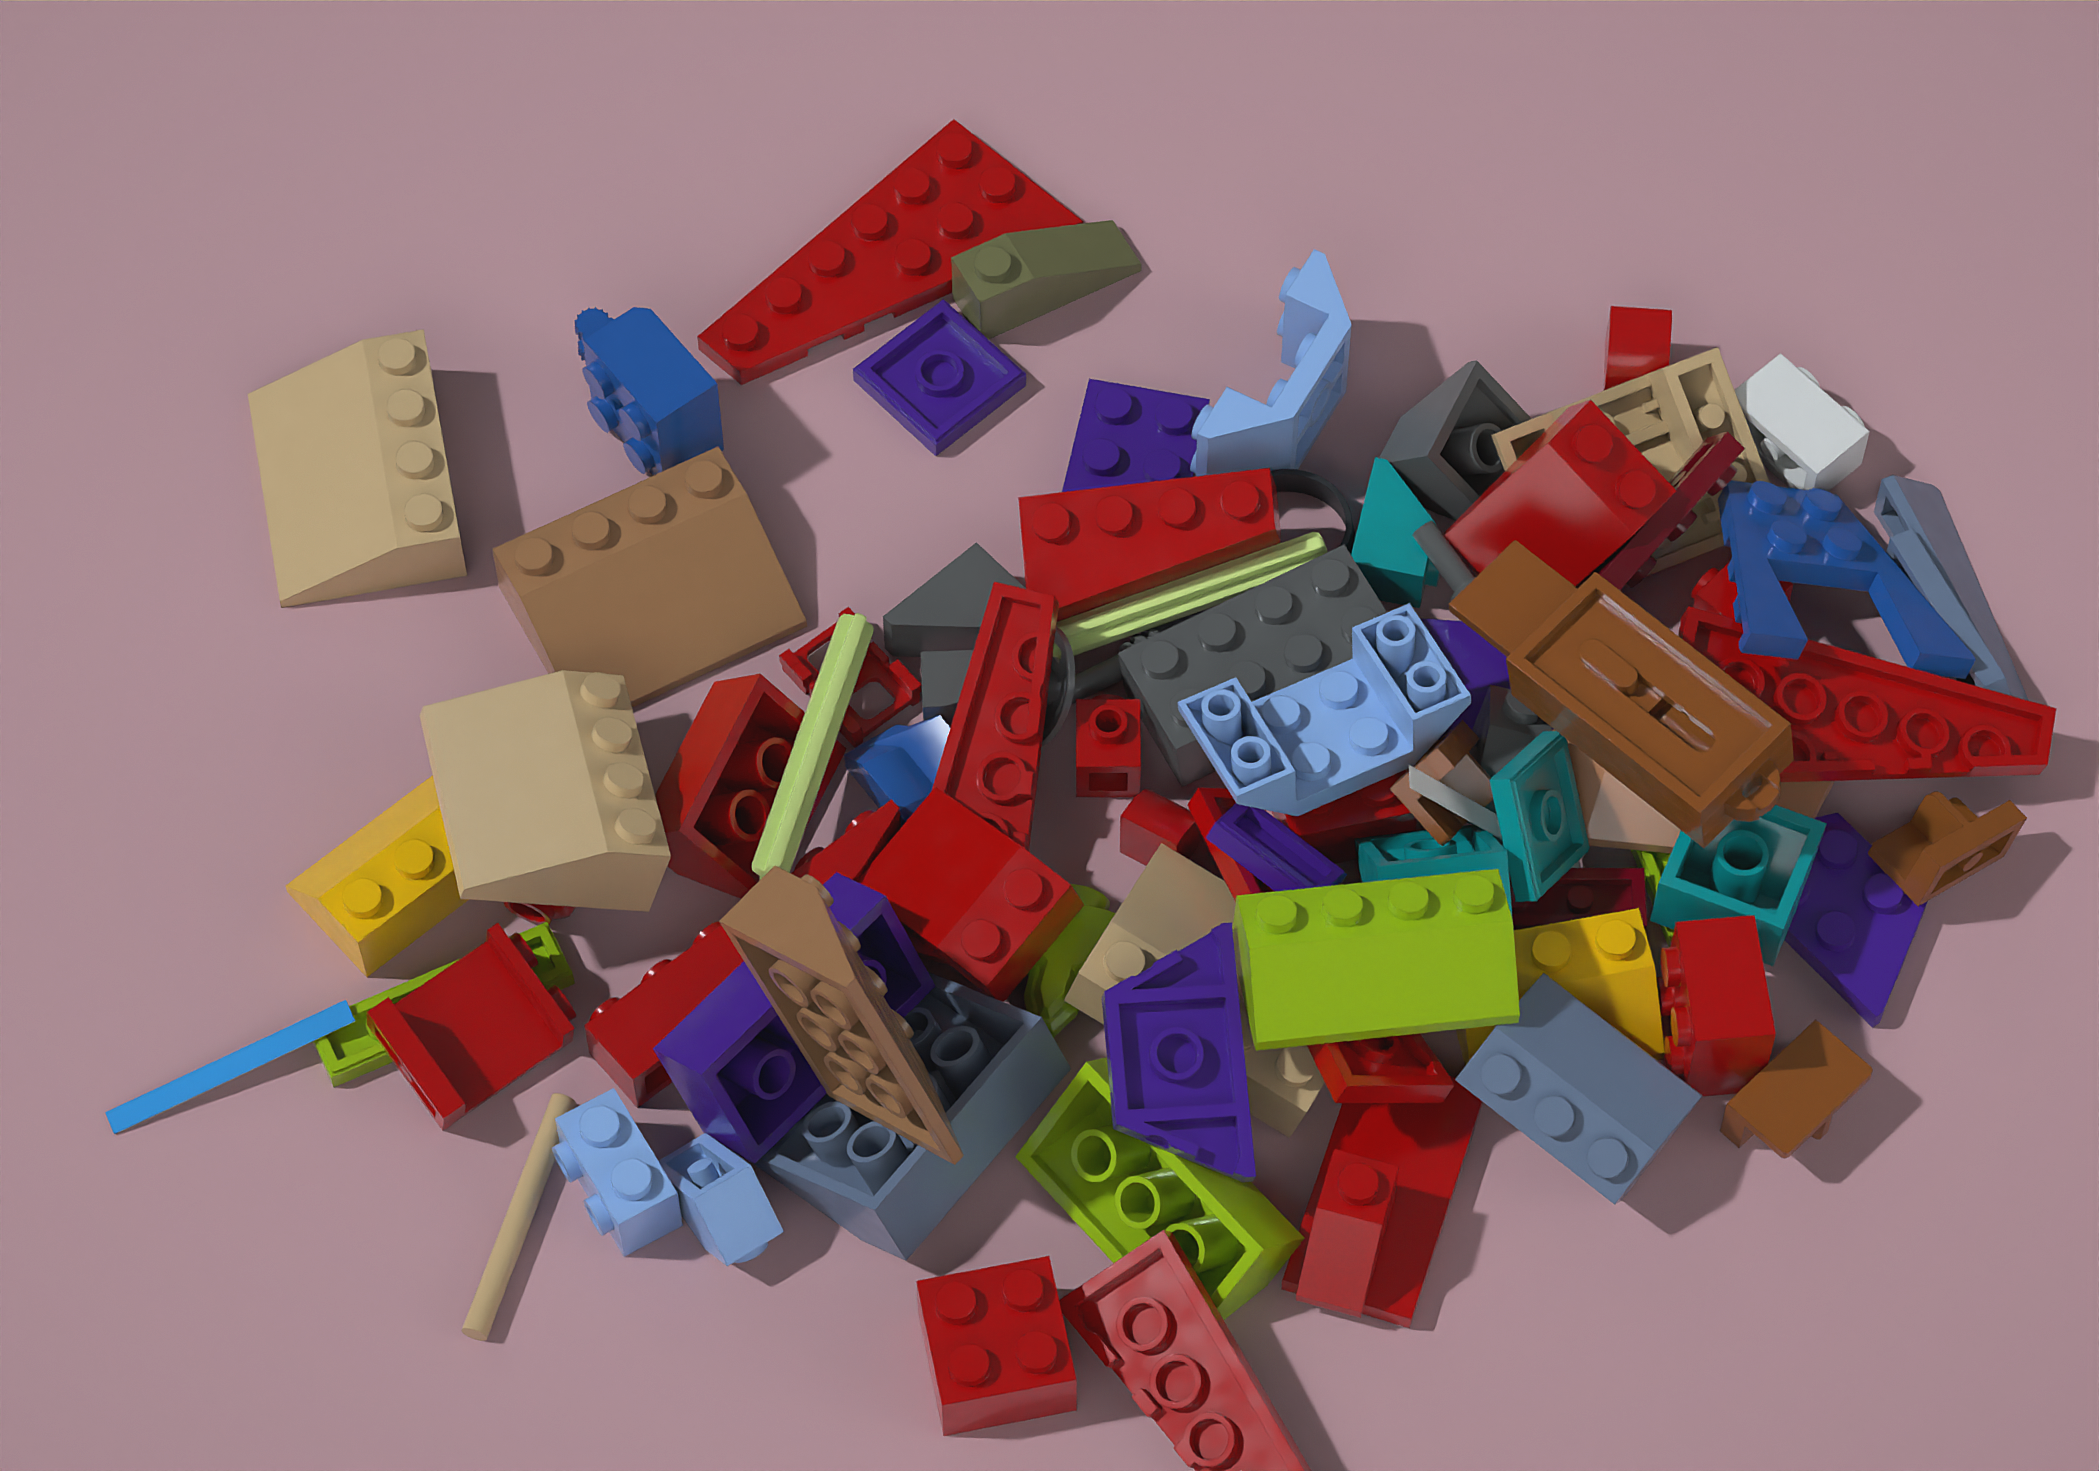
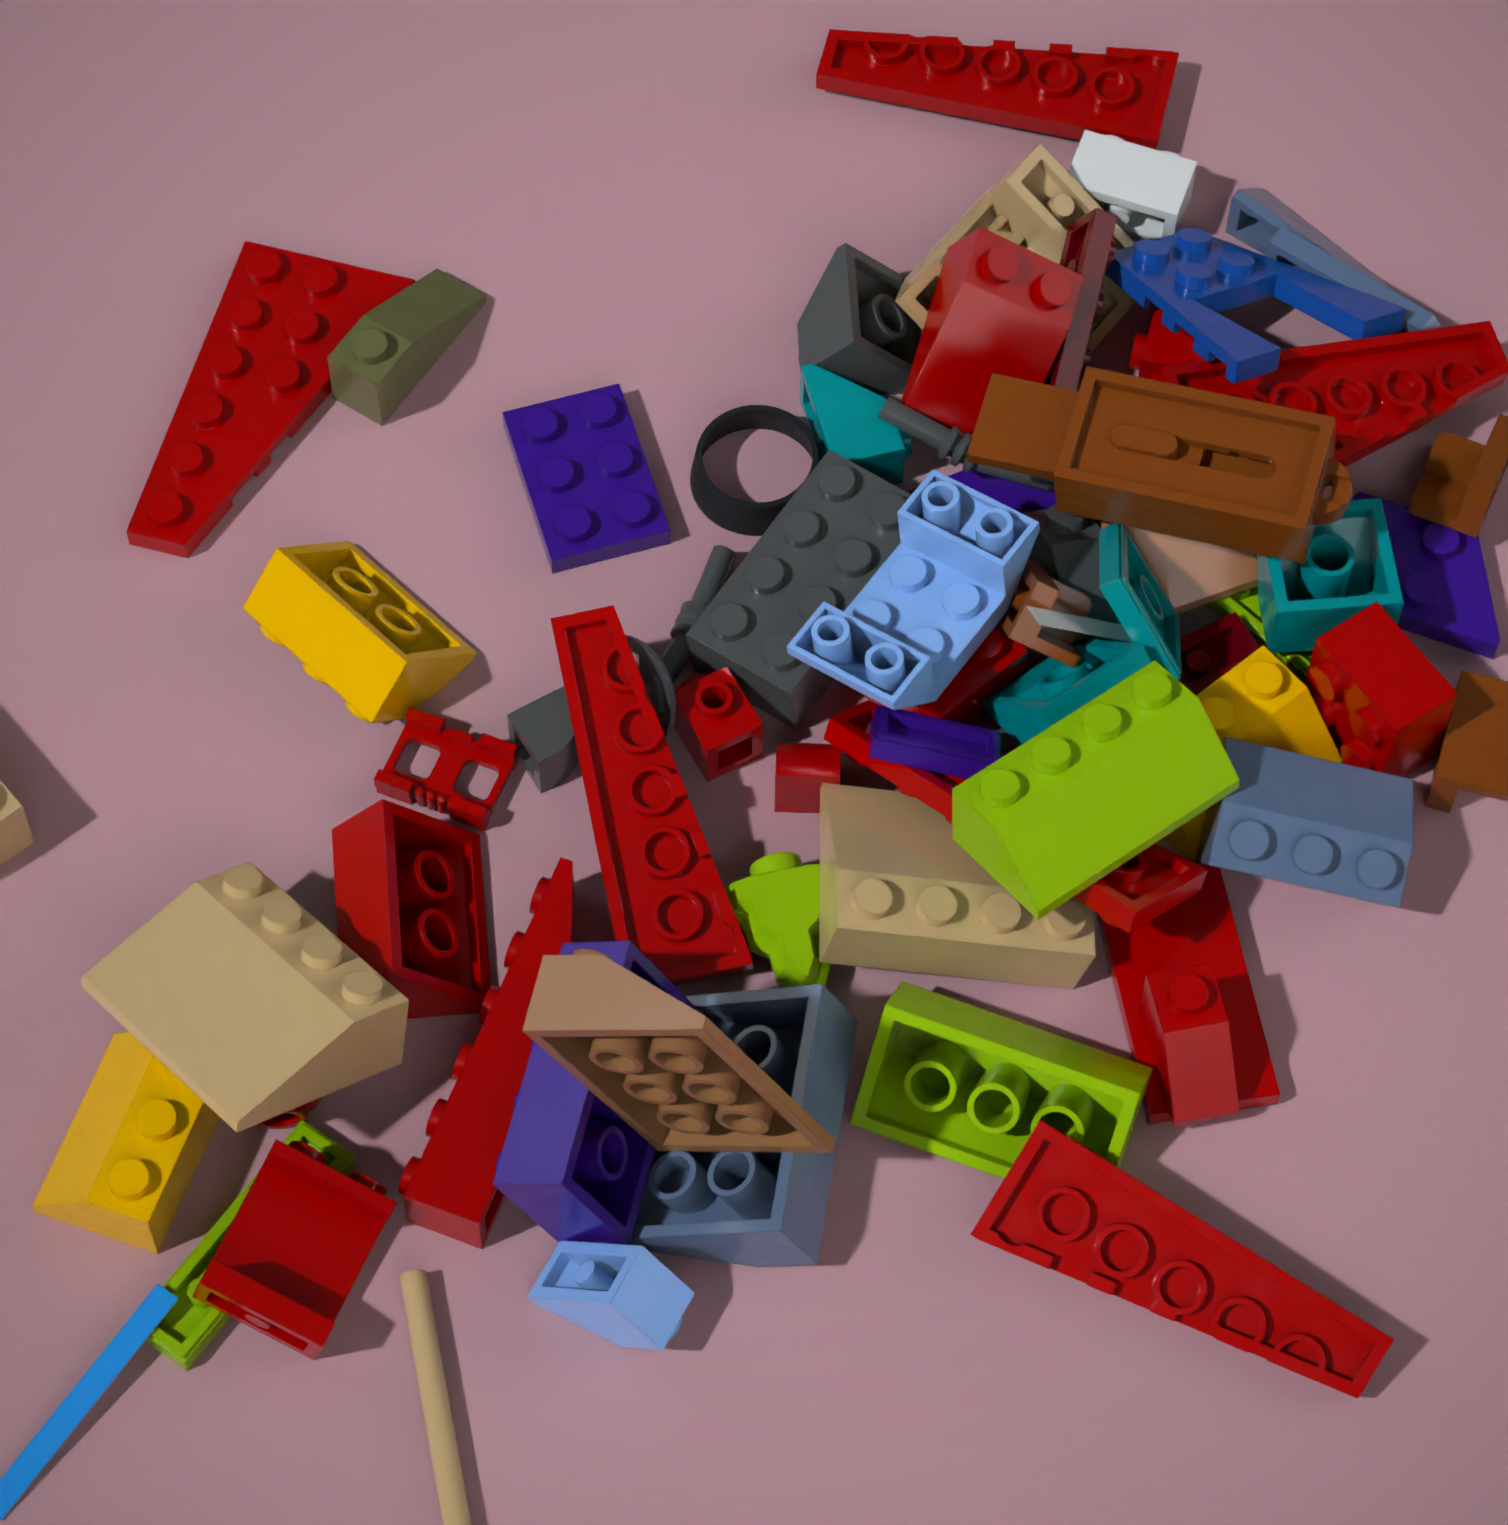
camera: 30 degrees left, 0 degrees up
(618, 1172) = (509, 1315): light blue brick -> none
(648, 389) = (118, 595): blue hinge -> none
(652, 581) = (215, 767): medium nougat slope -> none
(813, 745) = (462, 847): yellowish green axle -> none
(843, 513) = (355, 629): none -> yellow slope
(900, 764) = (550, 823): blue slope -> none
(939, 377) = (365, 471): dark purple tile -> none
(946, 608) = (510, 665): dark grey slope -> none
(972, 894) = (686, 903): red slope -> none
(996, 1345) = (944, 1299): red brick -> none
(1138, 536) = (648, 521): red wedge -> none
(1182, 1057) = (975, 956): dark purple wing -> none
(1186, 595) = (717, 550): yellowish green axle -> none
(1279, 434) = (689, 290): light blue slope -> none
(1636, 343) = (953, 178): red brick -> none
(1776, 300) = (1007, 86): none -> red wing

